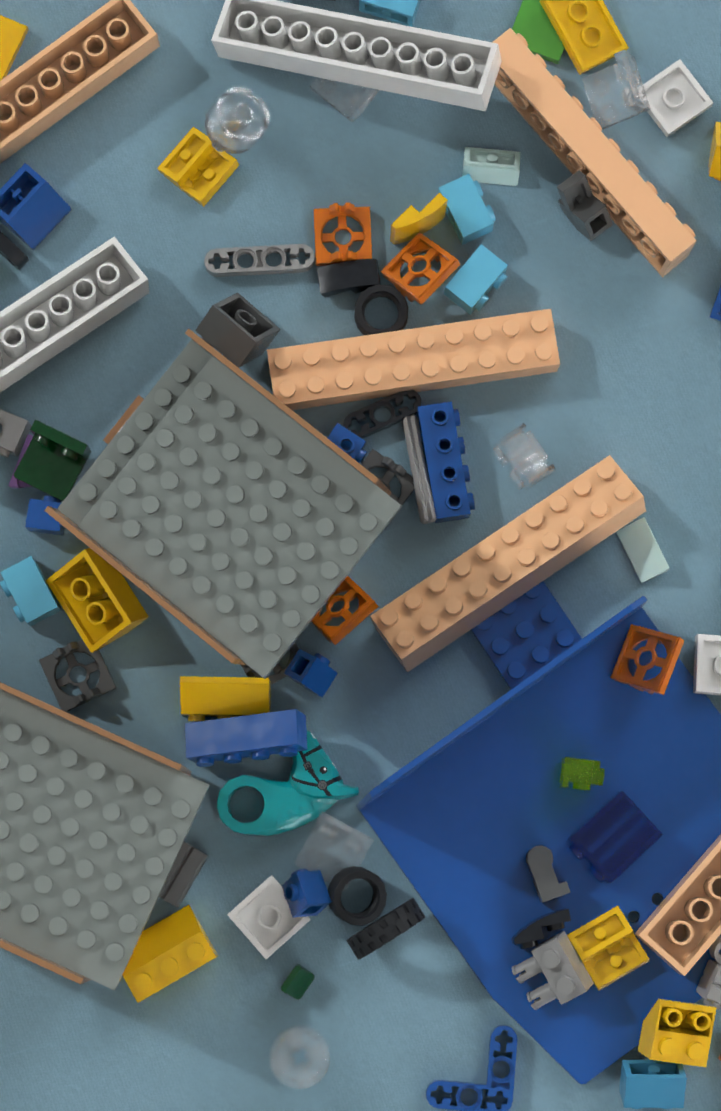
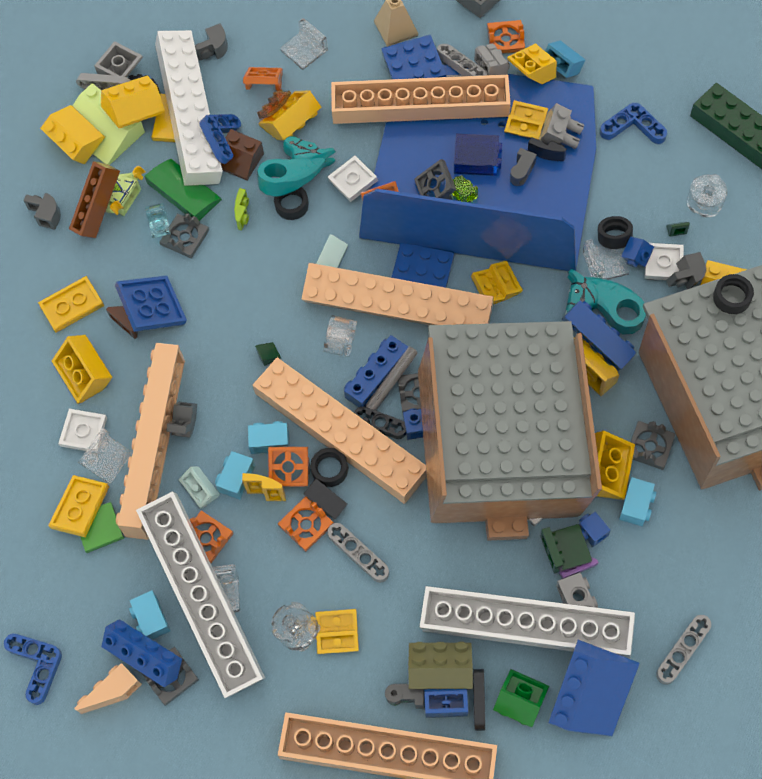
camera: 125 degrees left, 15 degrees down
(58, 223) = (440, 665): none -> olive brick
(69, 172) = (400, 693): none -> dark grey leg
(95, 875) = (738, 281): none -> black tyre
(218, 926) = (691, 271): none -> dark grey brick
(237, 330) = (407, 520): dark grey brick -> none
(385, 928) = (619, 194): black tyre -> none
(414, 148) = (225, 533): none -> orange piece
(428, 701) = (497, 282): none -> yellow slope
(583, 369) = (267, 353): none -> dark green slope
(640, 737) = (436, 169): none -> dark grey piece

